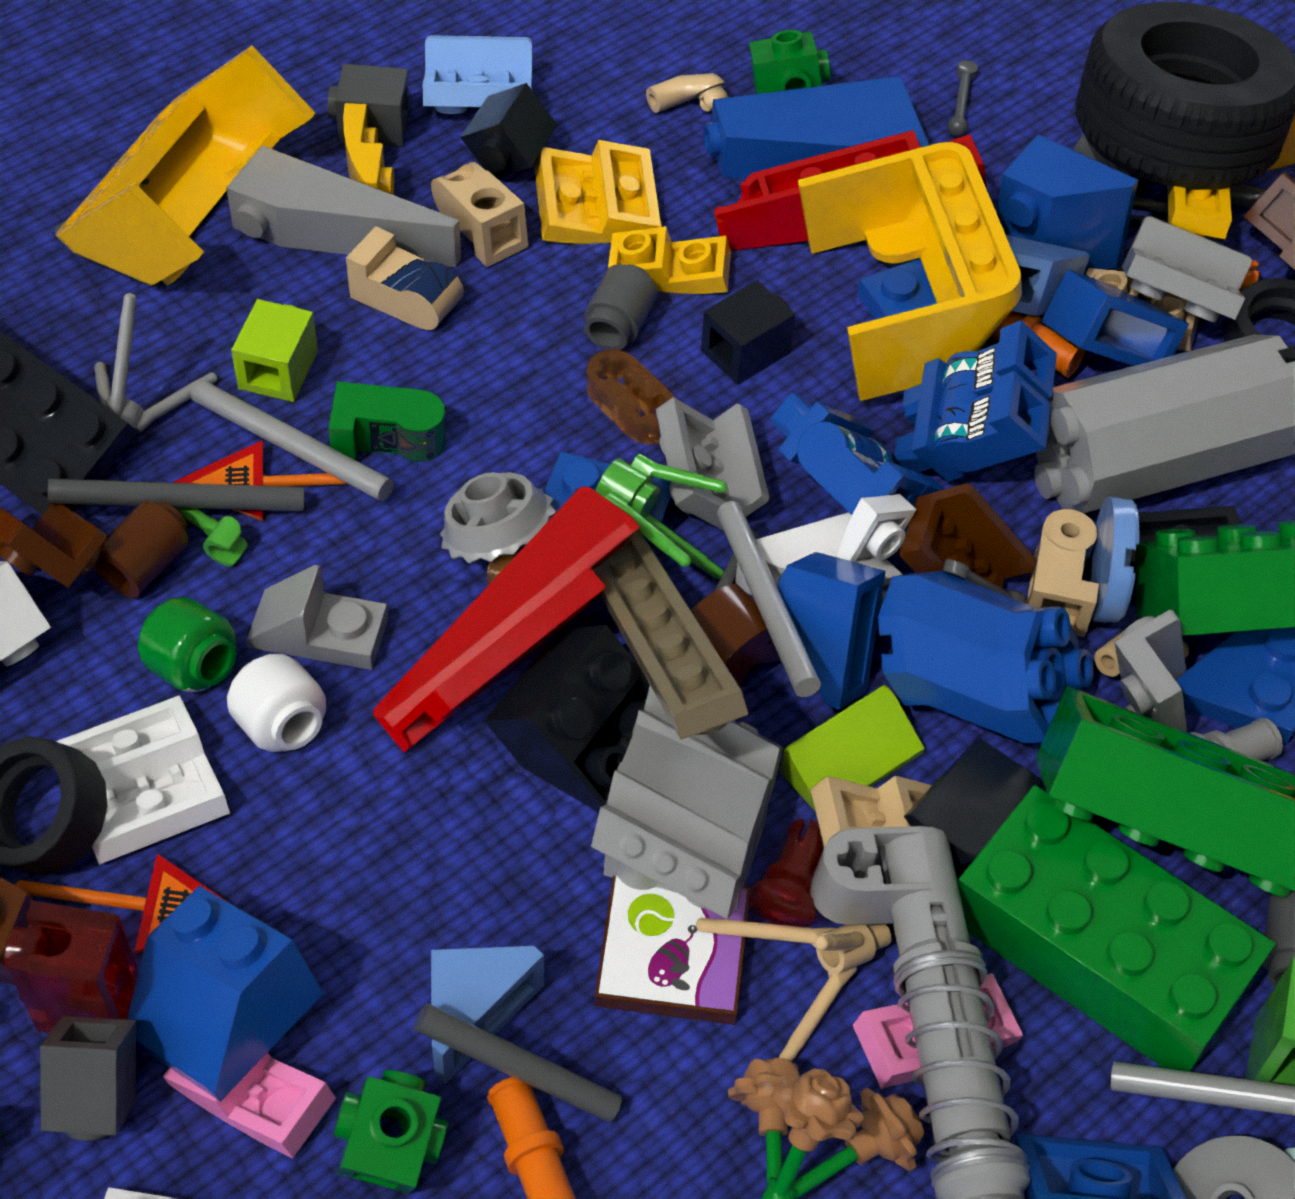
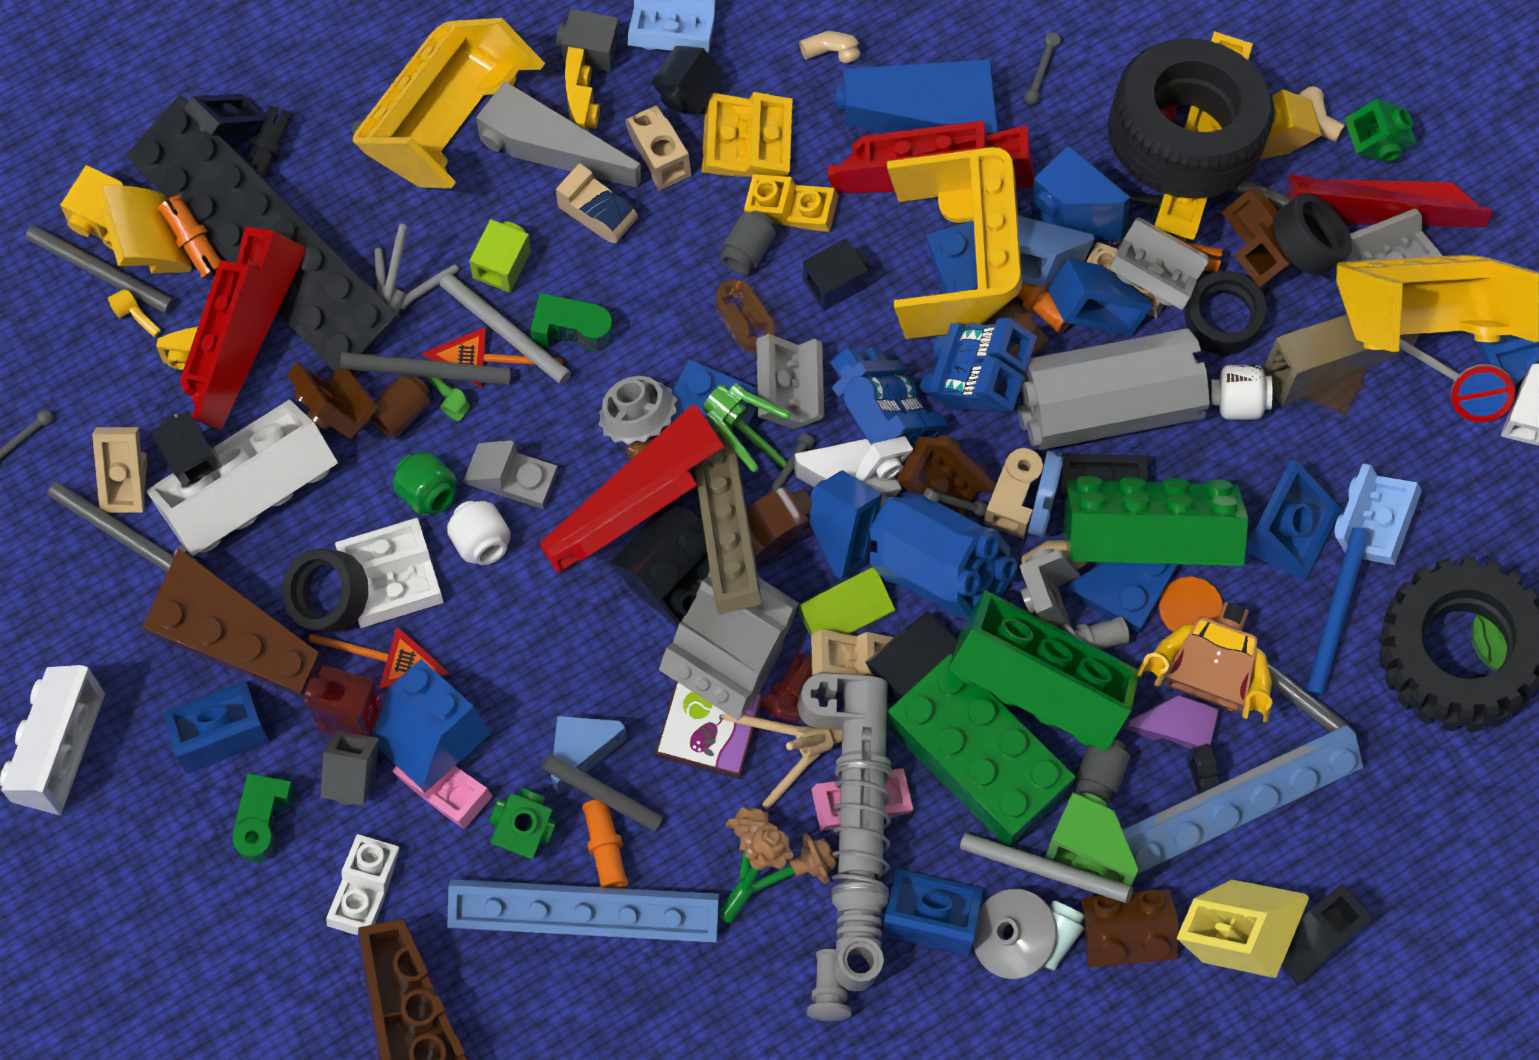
camera: 10 degrees right, 15 degrees up
(768, 600) = (802, 501): light grey bar -> none
(788, 62) = (906, 39): green brick -> none

